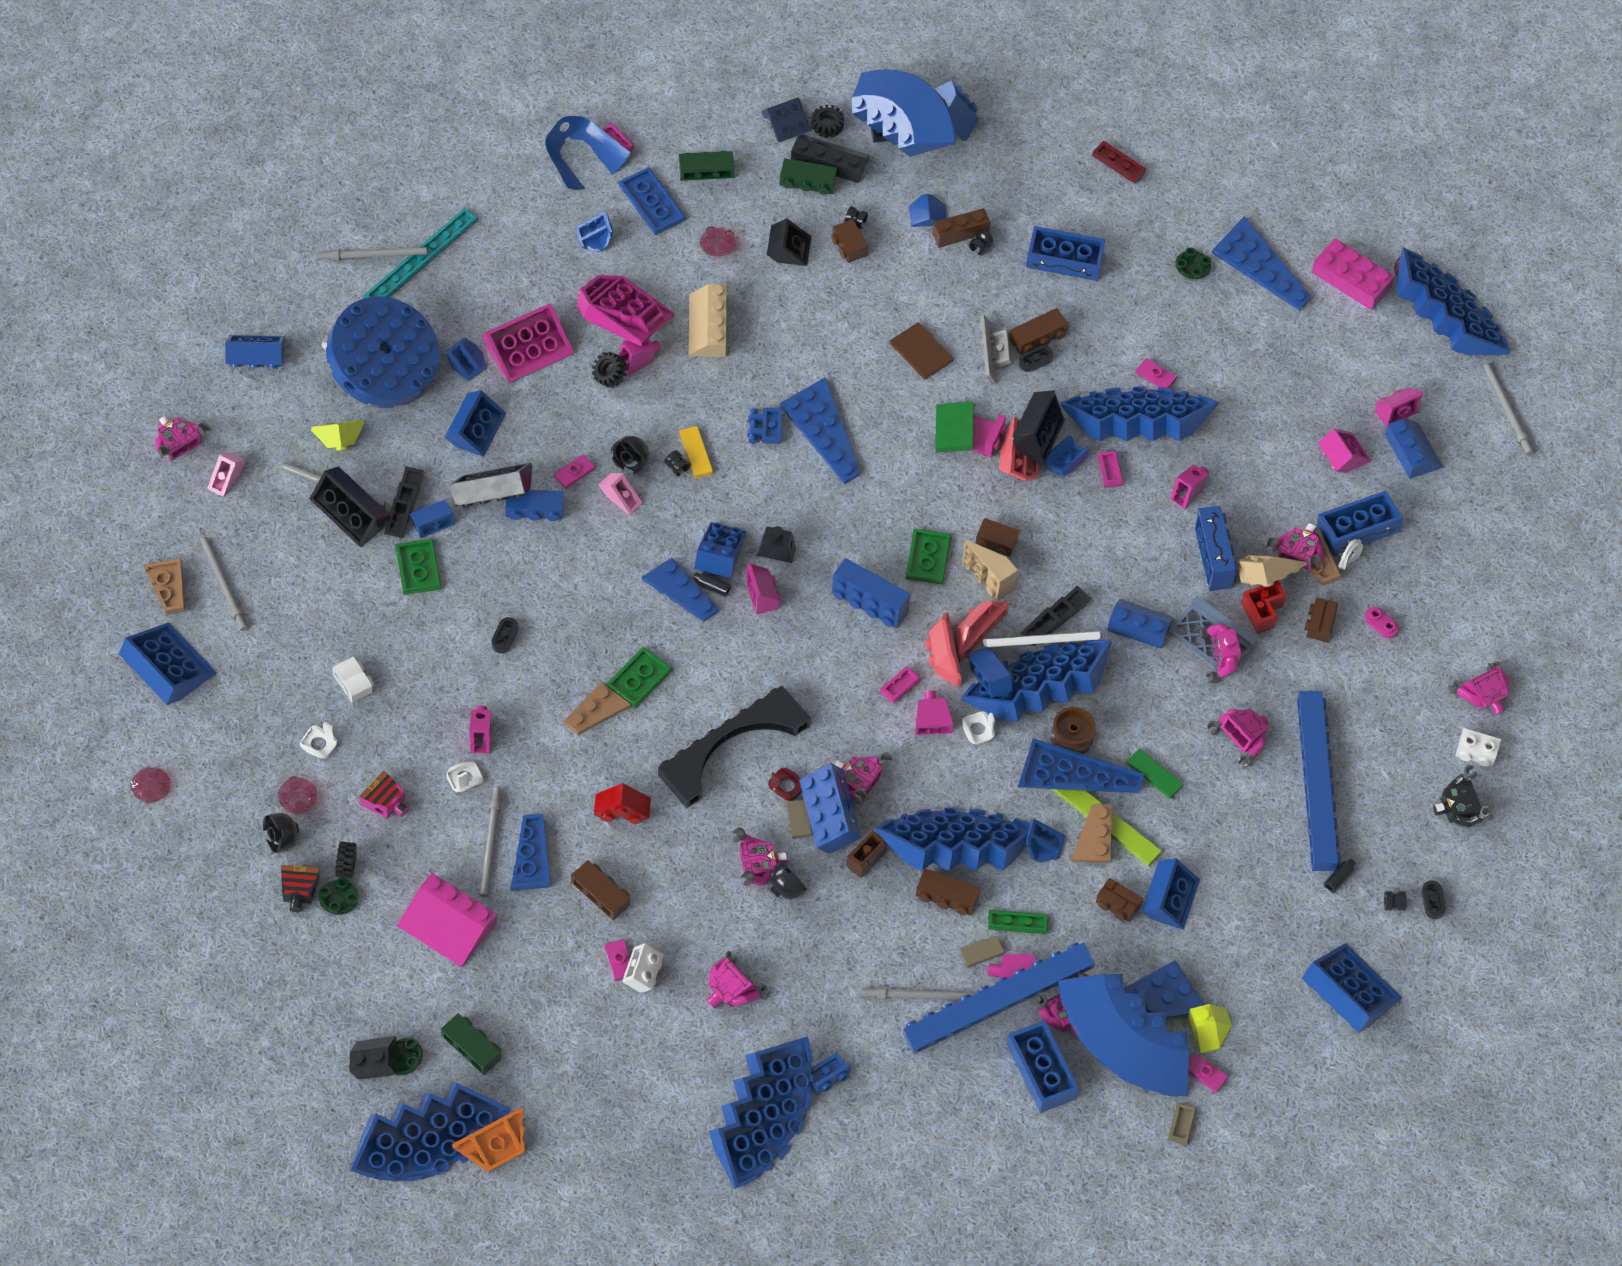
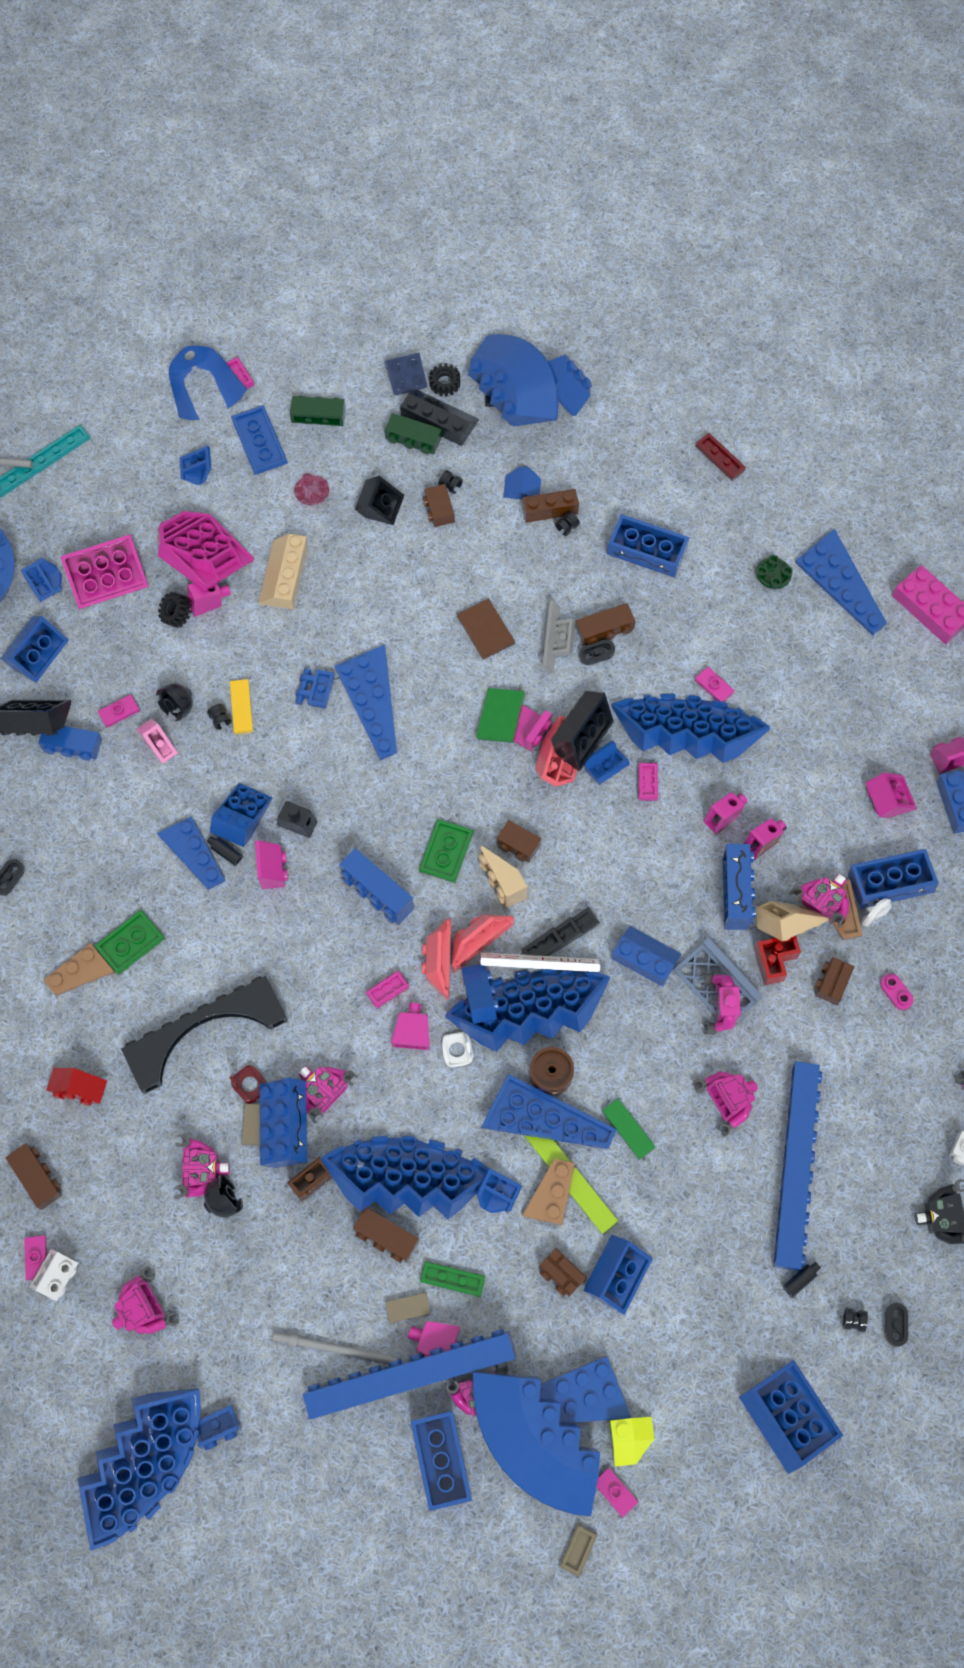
camera: 15 degrees right, 10 degrees up
(1235, 497) = (767, 835): none -> dark pink torso

